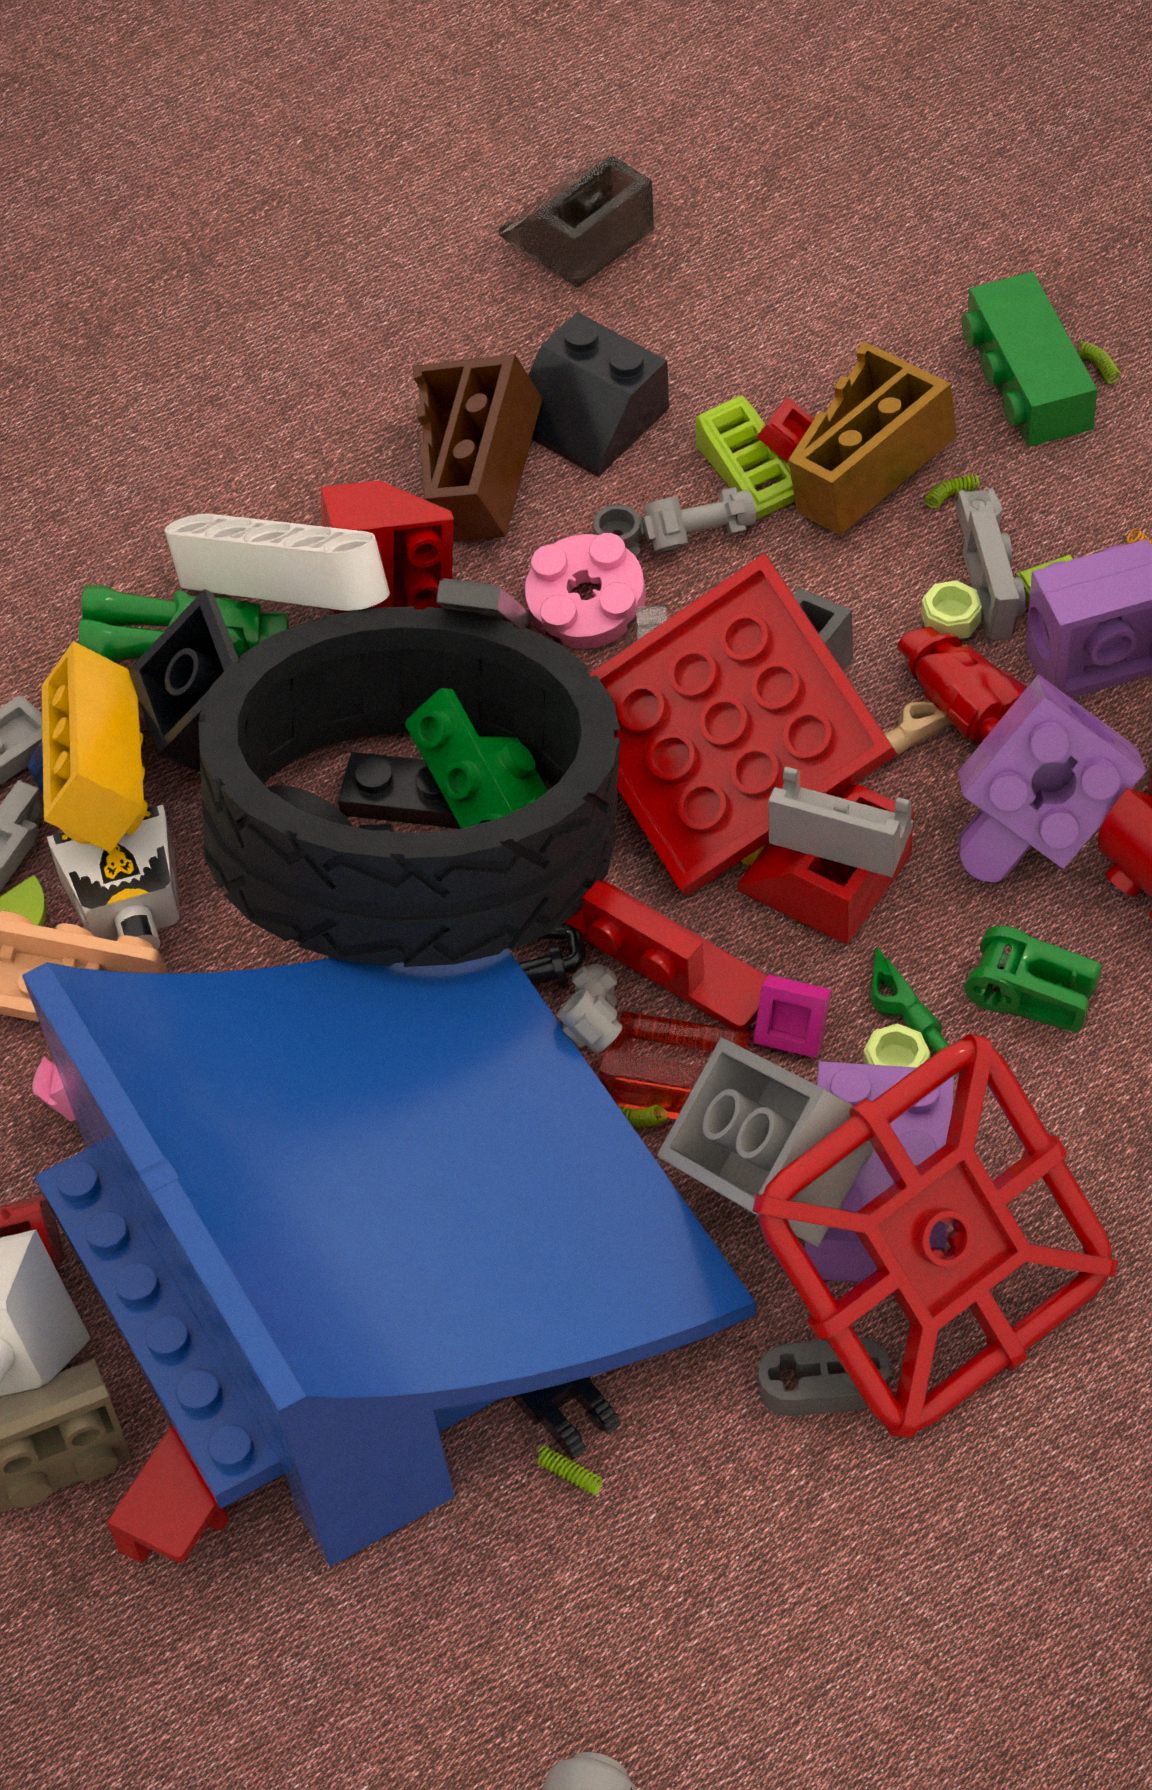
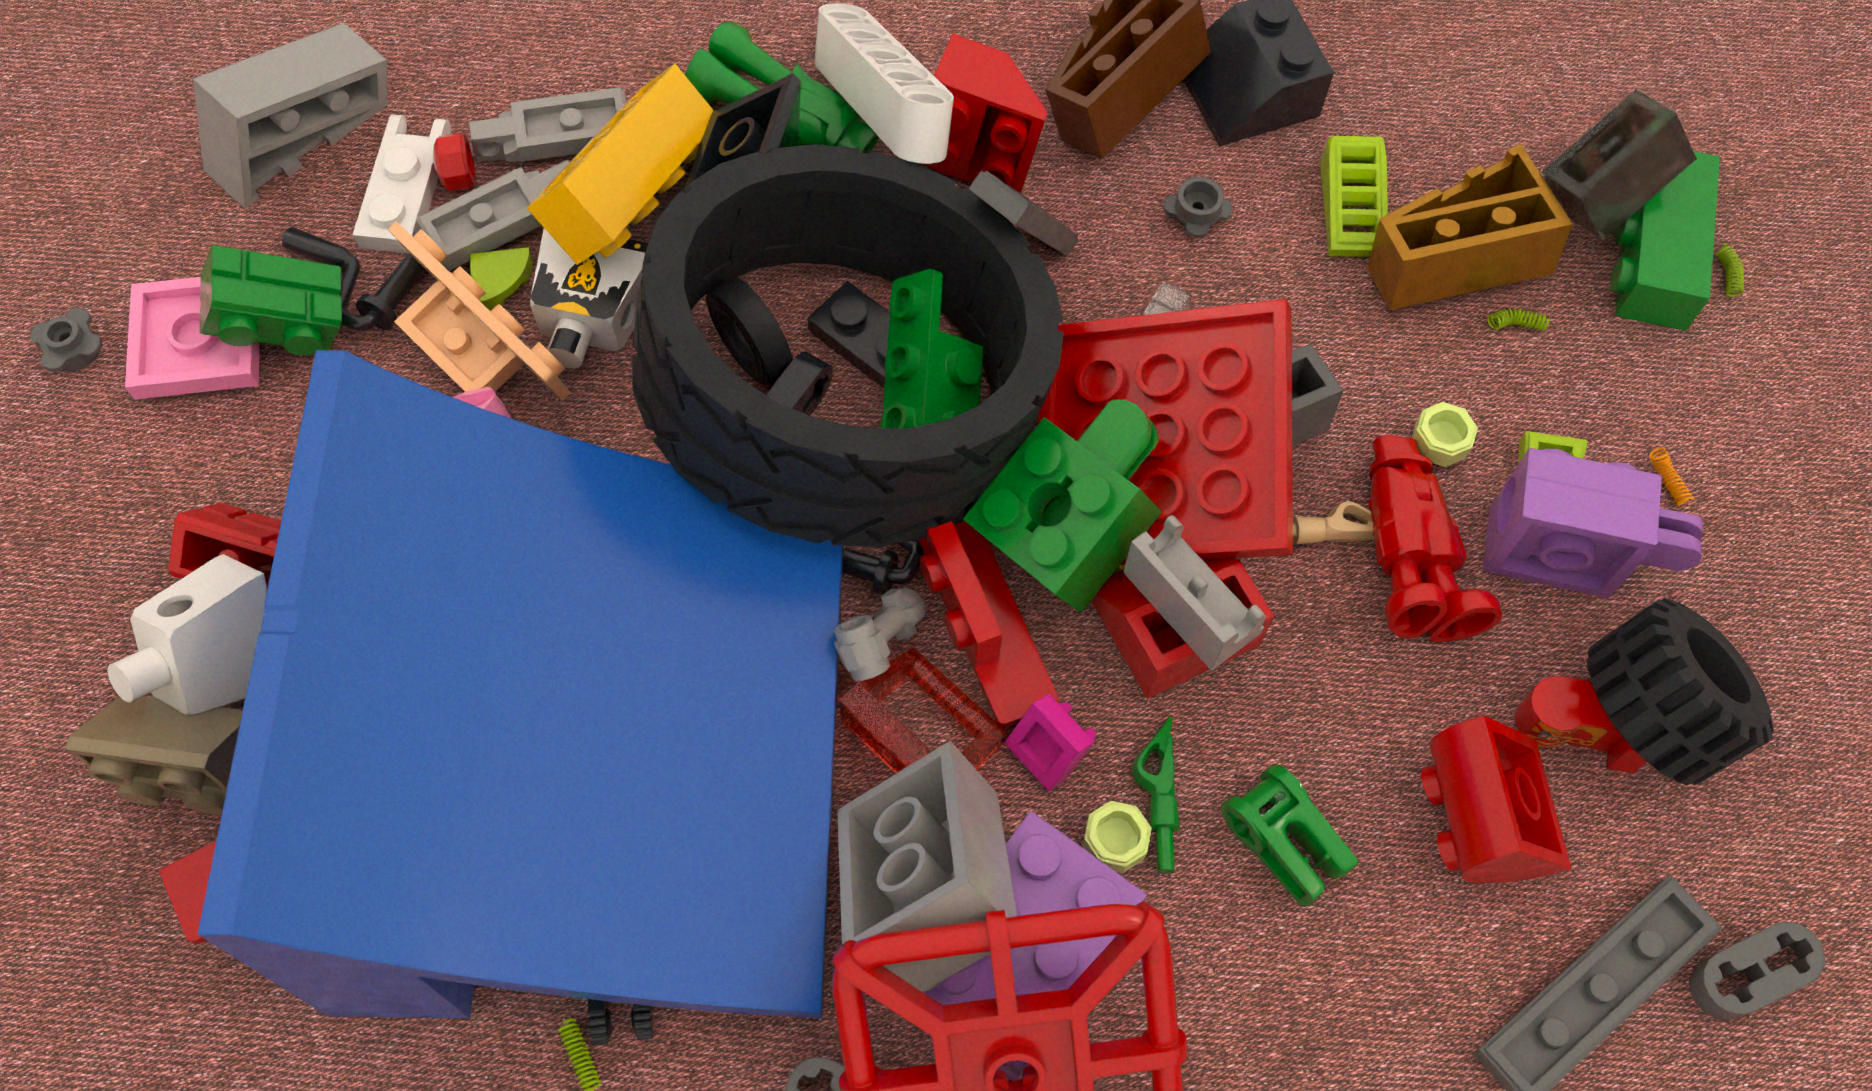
camera: 25 degrees right, 10 degrees up
(579, 560) = (1136, 211): bright pink plate -> none
(647, 1113) = (865, 755): lime leg -> none
(668, 524) = (1246, 220): light grey bar -> none
(710, 809) = (1096, 506): none -> green brick
(785, 429) = (1401, 186): red tile -> none
(955, 316) = (1619, 163): none -> clear smoke slope
(989, 562) = (1506, 406): light grey hinge -> none
(1042, 782) = (1391, 641): medium lavender brick -> none

